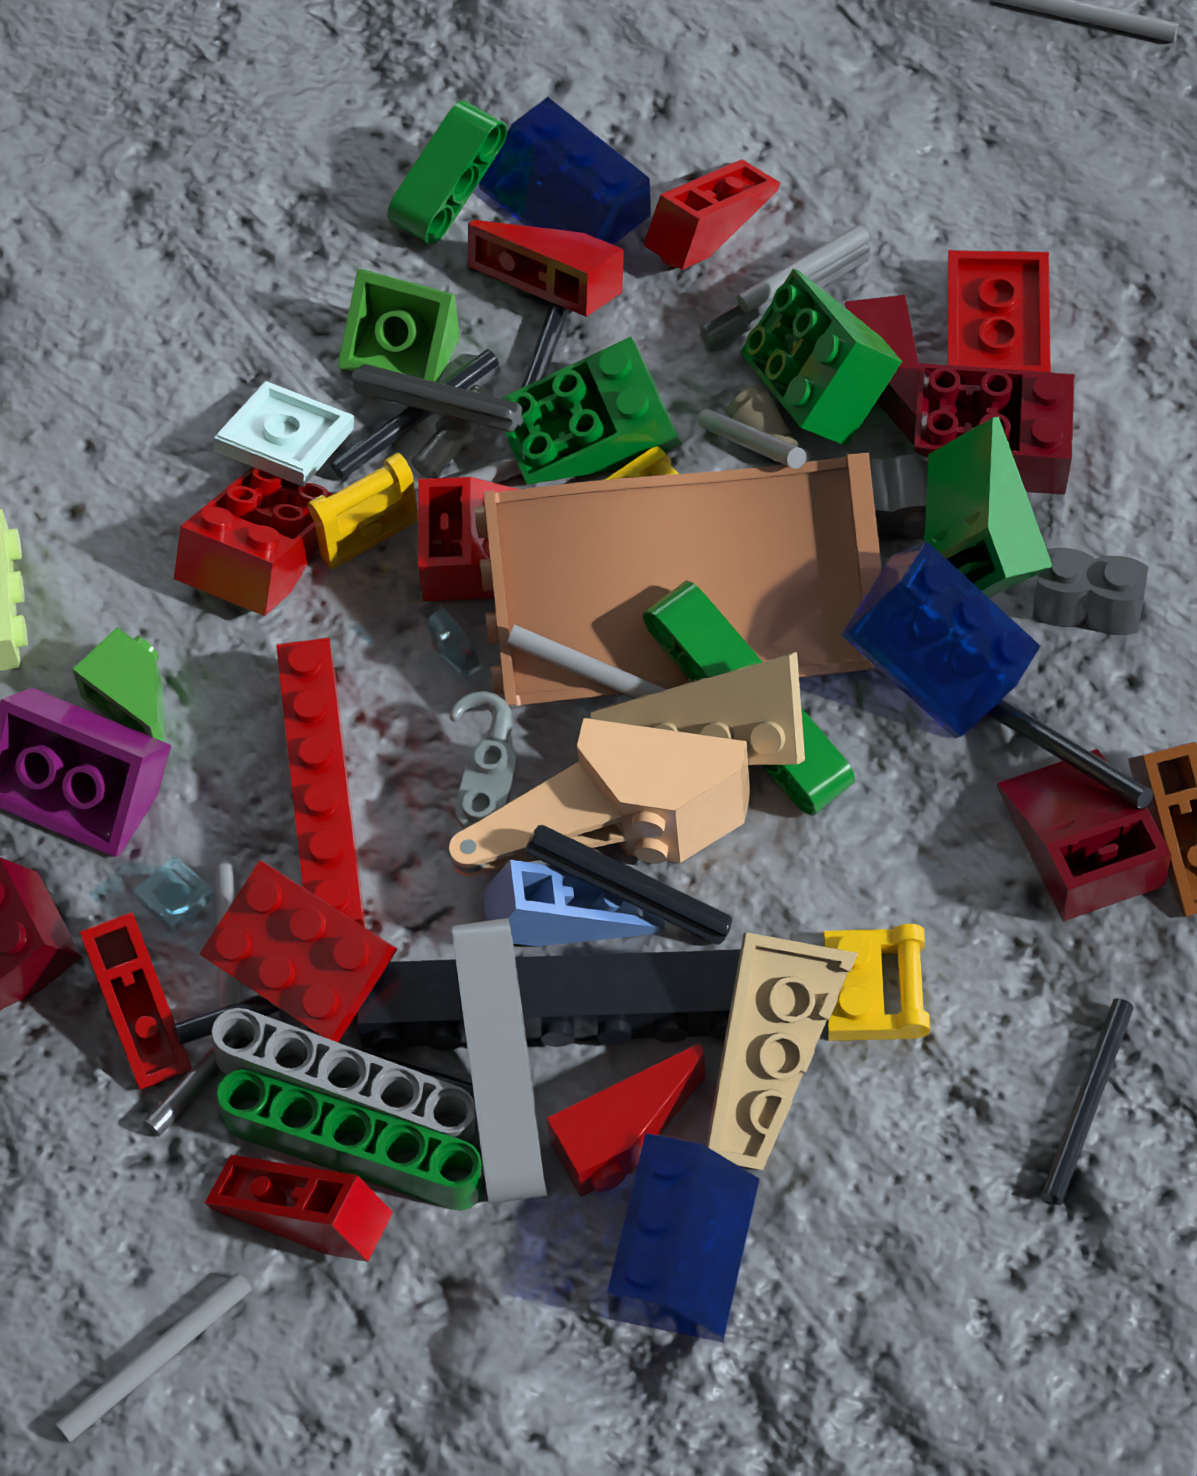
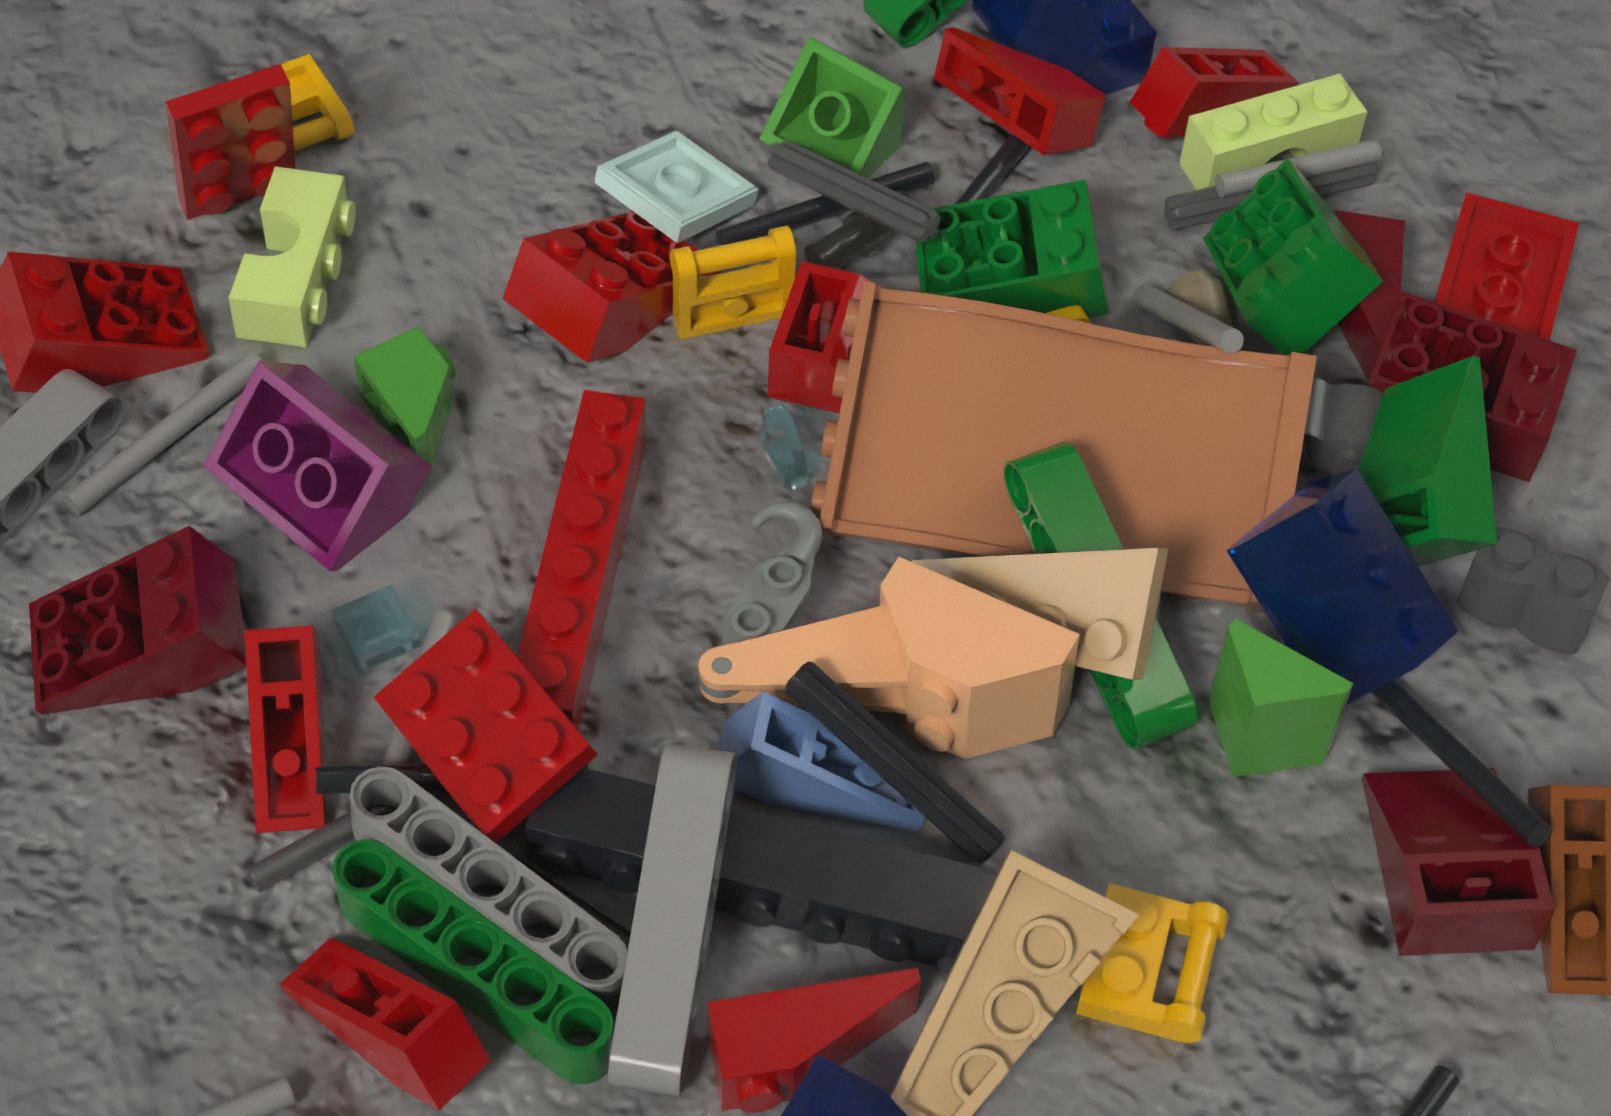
camera: 10 degrees right, 5 degrees down
(580, 663) = (915, 501): light grey bar -> none
(754, 248) = (1253, 131): none -> yellowish green arch
(911, 750) = (1273, 704): none -> bright green slope

